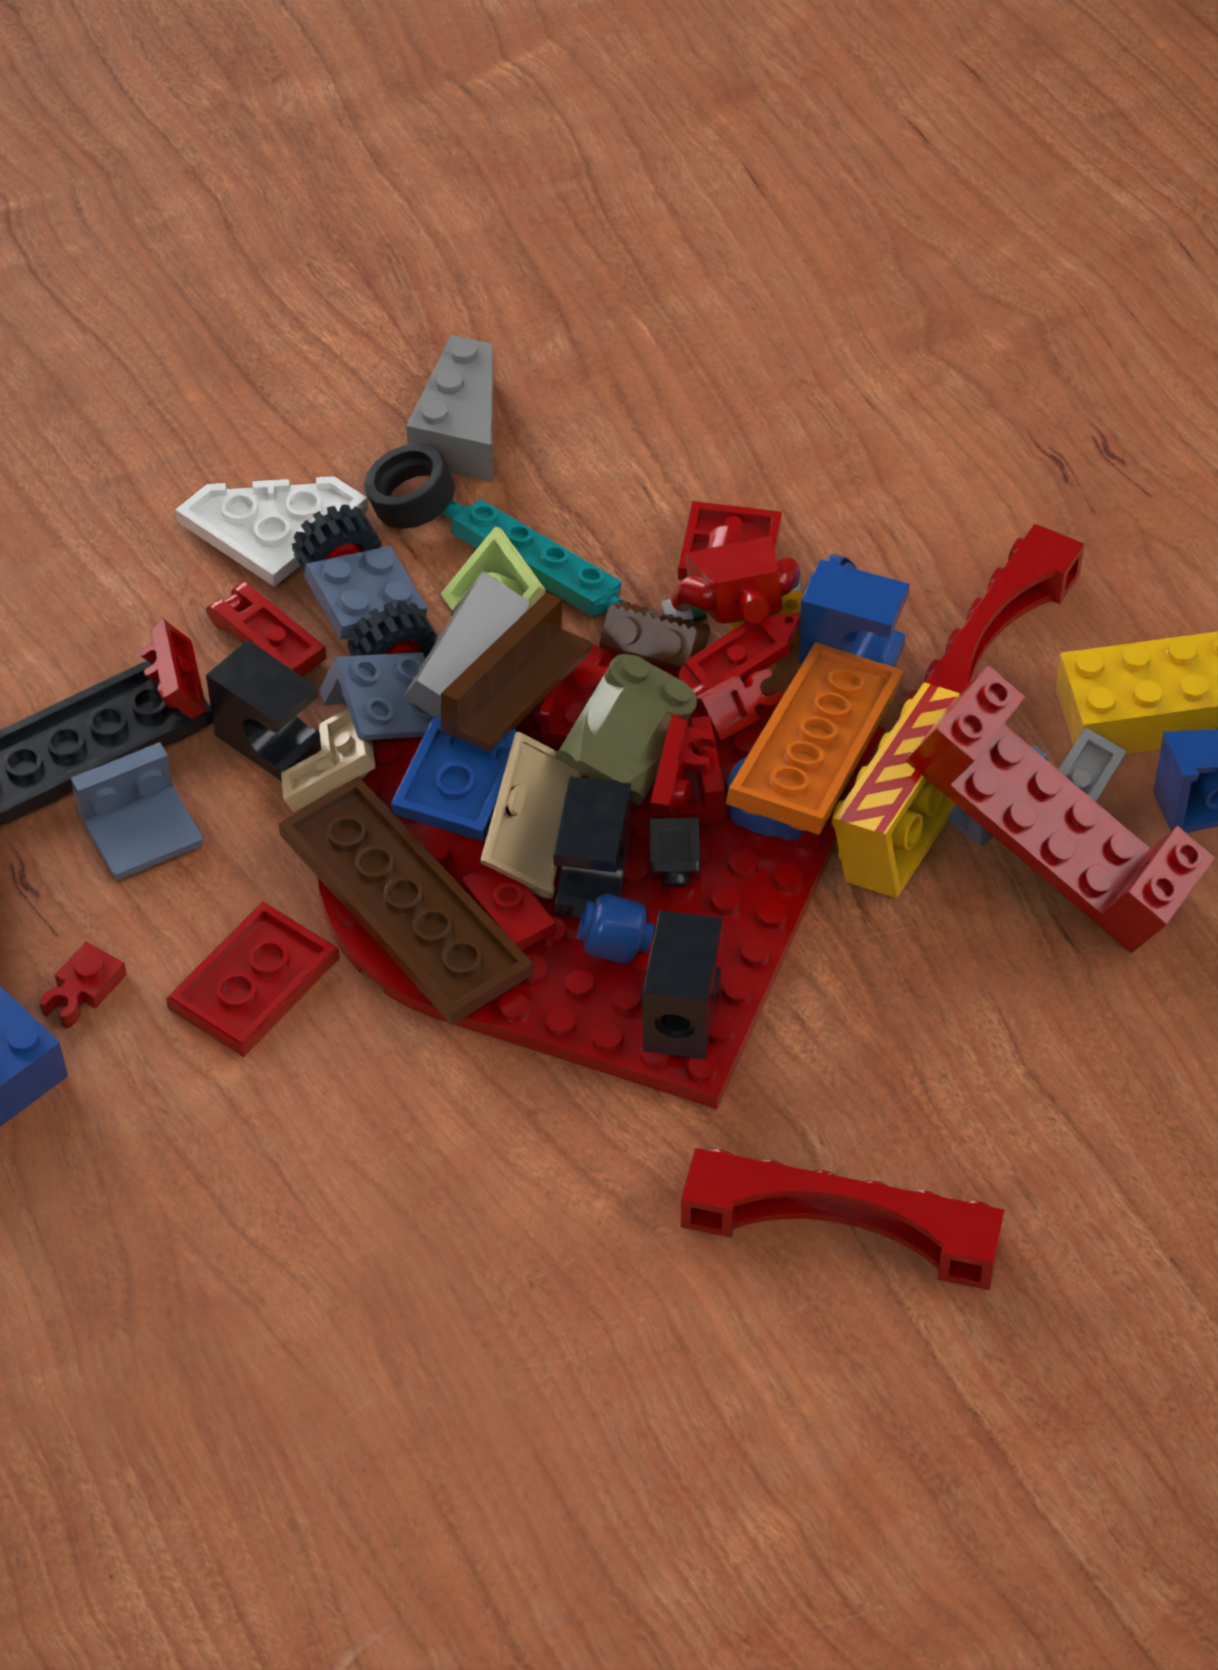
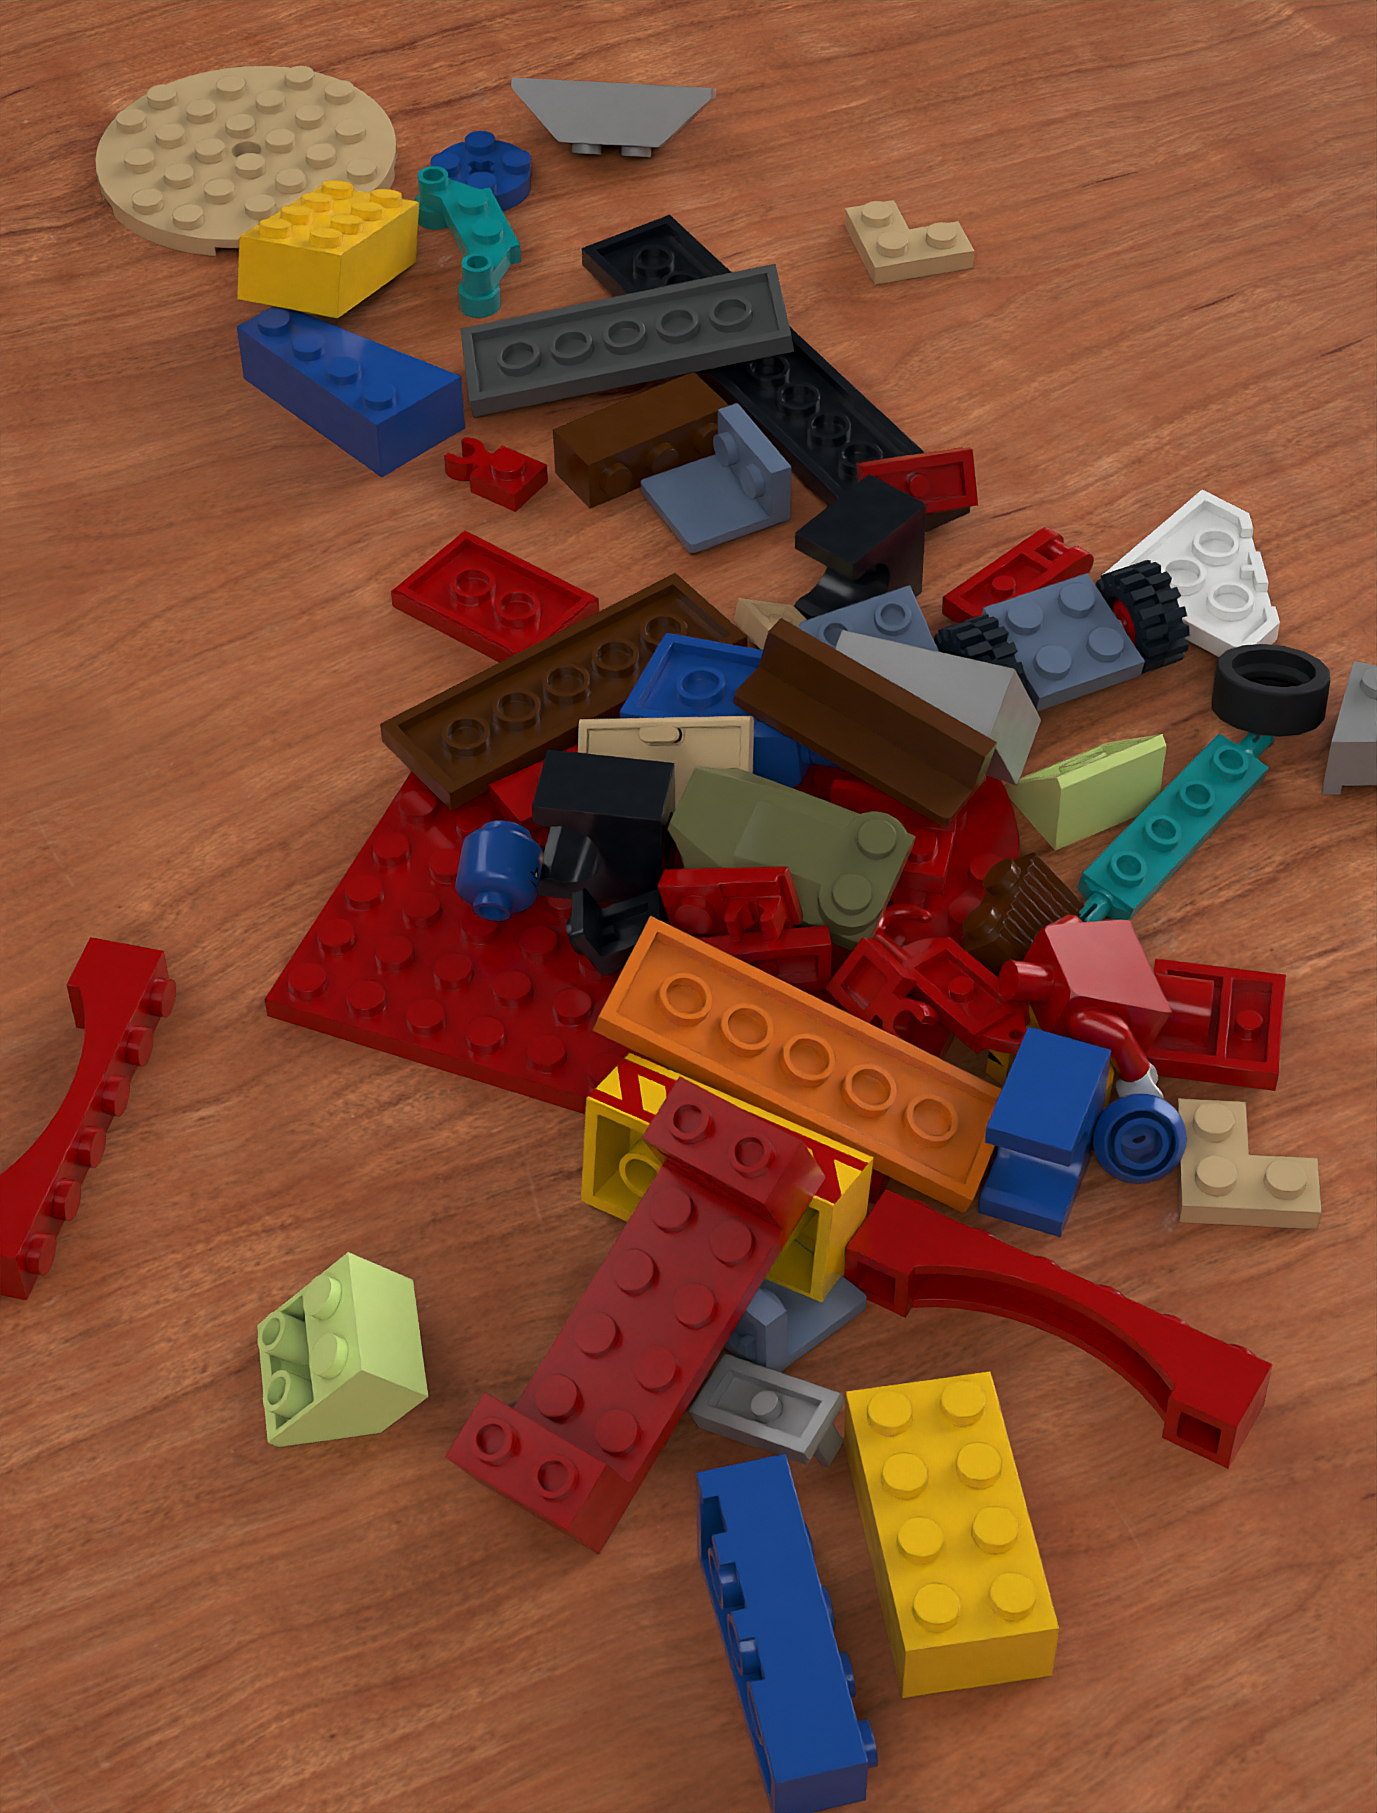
camera: 90 degrees right, 5 degrees down
(66, 870) = (637, 439): none -> reddish brown brick
(681, 984) = (376, 913): black piece -> none
(864, 541) = (1234, 1188): none -> tan plate
(1055, 1022) = (342, 1355): none -> yellowish green slope

